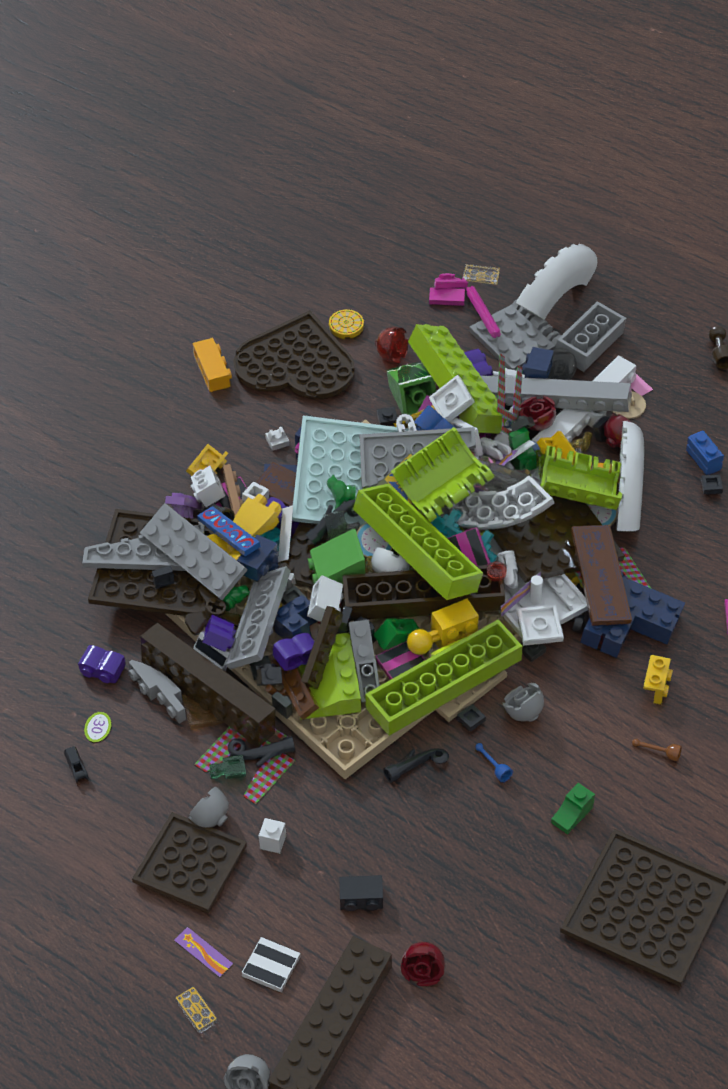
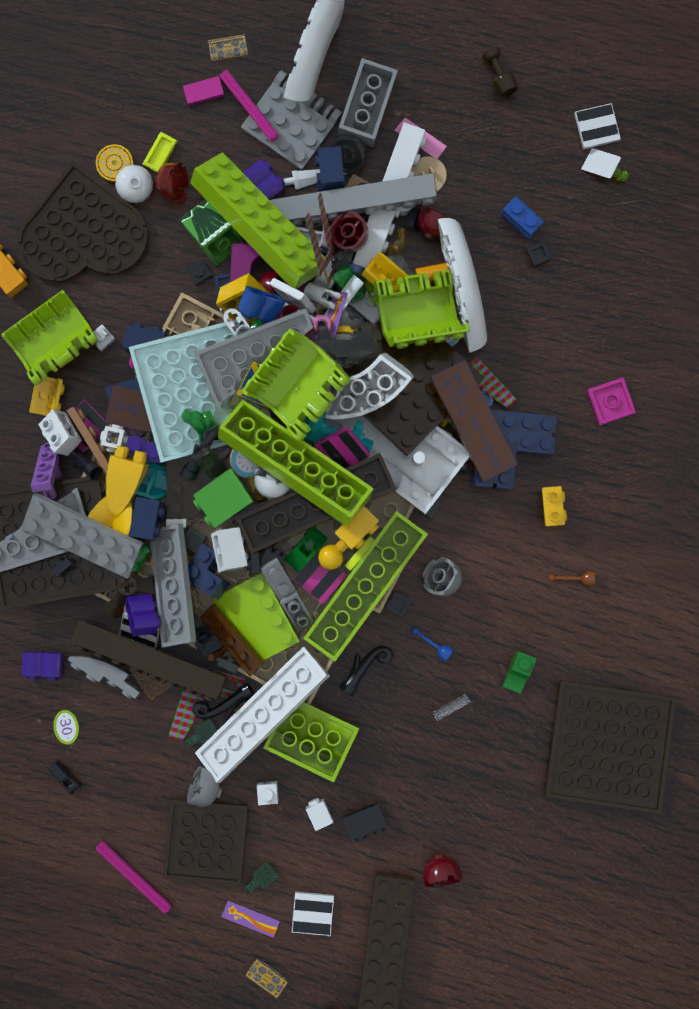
camera: 20 degrees left, 35 degrees up
(102, 873) = (131, 875): none -> dark pink axle
(228, 531) = (107, 502): blue tile -> none
(230, 419) = (49, 336): none -> lime hinge
(234, 910) = (263, 876): none -> clear green plate
(285, 533) = (160, 477): white sticker -> none
(294, 651) = (222, 612): dark purple brick -> none
(296, 756) = (262, 714): none -> white plate
(317, 872) = (319, 813): none -> white brick
(322, 647) = (246, 605): dark brown plate -> none
(336, 798) = (313, 740): none -> lime slope
(357, 338) = (134, 184): none -> white cylinder
(393, 321) = (160, 152): none -> neon yellow tile
(449, 281) = (199, 71): dark pink plate -> none
(452, 399) = (265, 262): white tile -> none
(491, 819) = (451, 707): none -> clear tile
(496, 571) = (380, 465): clear red tile -> none
(508, 559) = (386, 447): white hinge -> none
(539, 624) = (433, 496): white tile -> none

